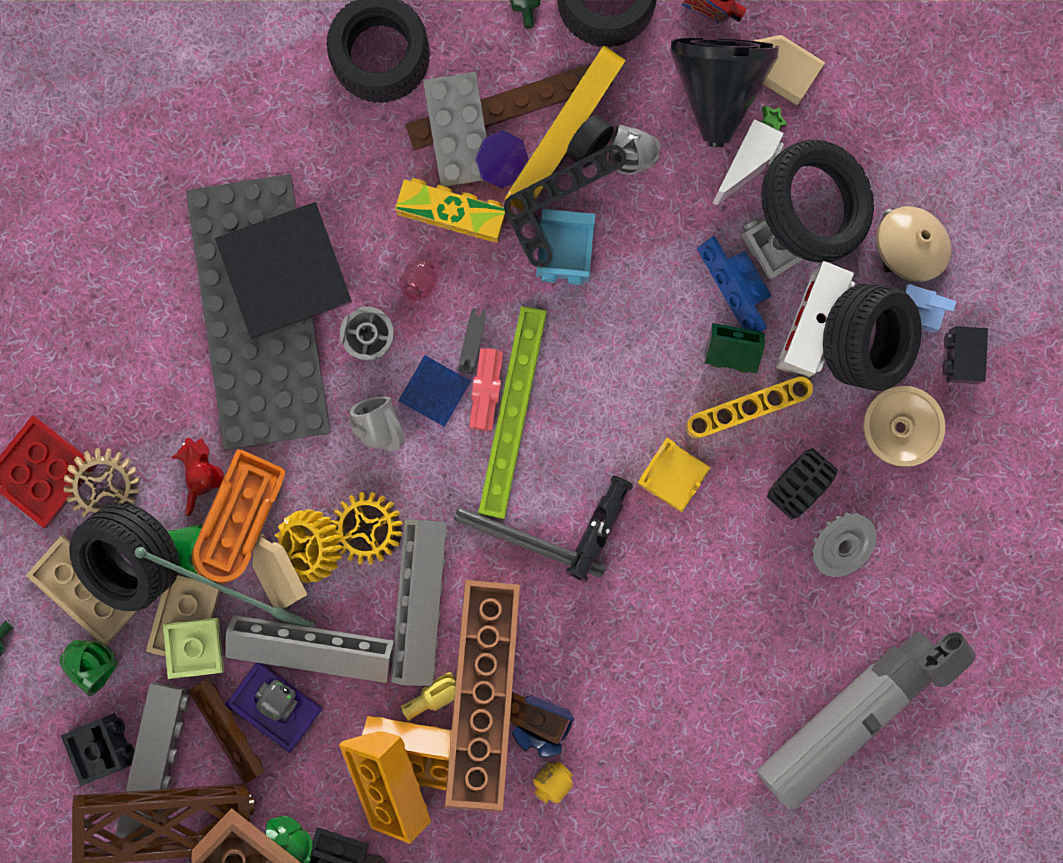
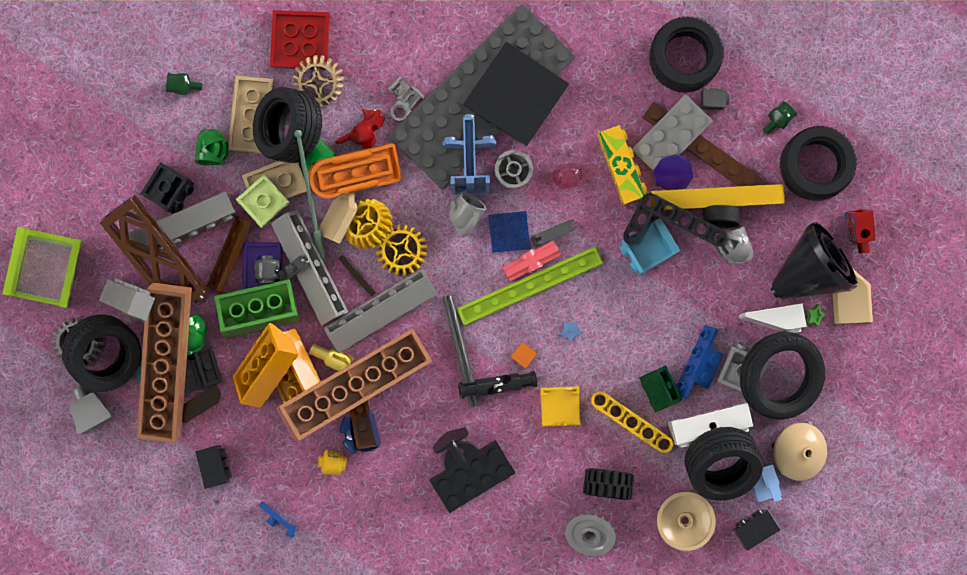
camera: 55 degrees right, 0 degrees up
(198, 394) = (408, 97): none -> light grey piece
(297, 669) = (293, 268): none -> dark grey piece
(311, 745) = (255, 307): none -> bright green slope
(345, 392) = (469, 182): none -> medium blue piece
(358, 600) = (355, 274): none -> dark brown piece
(451, 55) = (714, 99): none -> dark grey window
(586, 474) = (523, 355): none -> orange tile
(596, 402) = (570, 330): none -> medium blue piece
(674, 634) = (468, 471): none -> black plate

